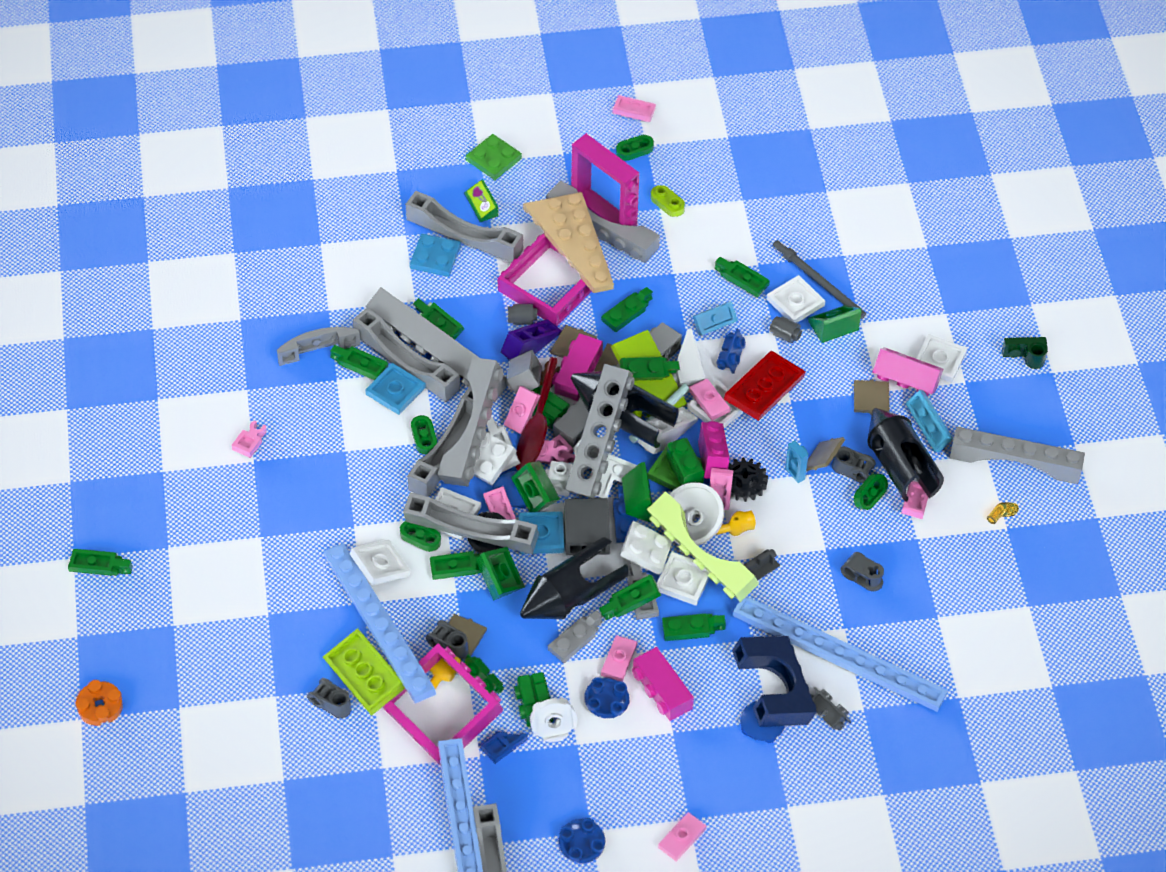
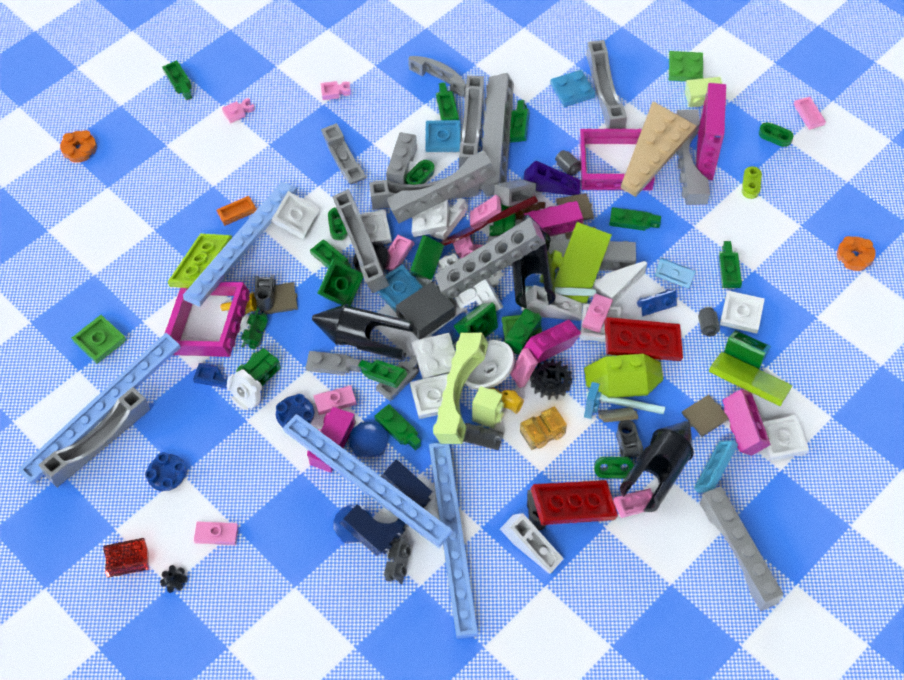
camera: 55 degrees right, 5 degrees up
(190, 539) = (237, 111): none -> bright pink plate
(320, 611) = (236, 210): none -> orange tile
(327, 697) = (169, 257): dark grey piece -> none
(341, 484) = (342, 155): none -> light grey slope
(374, 815) = (98, 339): none -> bright green plate
(386, 427) = (402, 155): none -> light grey arch
(482, 201) = (641, 84): slope -> none
(540, 163) = (696, 90): none -> yellowish green brick
(649, 367) = (580, 256): green hinge -> none
(686, 657) = (368, 439): none -> blue dish
(738, 540) = (487, 407): none -> yellowish green brick
(738, 675) = (368, 481): none -> light blue plate
(789, 420) = (624, 375): none -> lime wedge
(789, 517) = (543, 429): none -> clear yellow brick
(791, 256) = (779, 284): dark grey bar -> none
(806, 174) = (860, 245): none -> orange plate
(817, 438) = (633, 404): none -> light aqua piece
(868, 339) = (750, 378): none -> lime tile
(884, 539) = (573, 502): none -> red plate
(891, 597) = (531, 542): none -> white slope
(1002, 509) = (681, 570): clear yellow arm -> none
(1031, 348) = (851, 492): dark green plate -> none

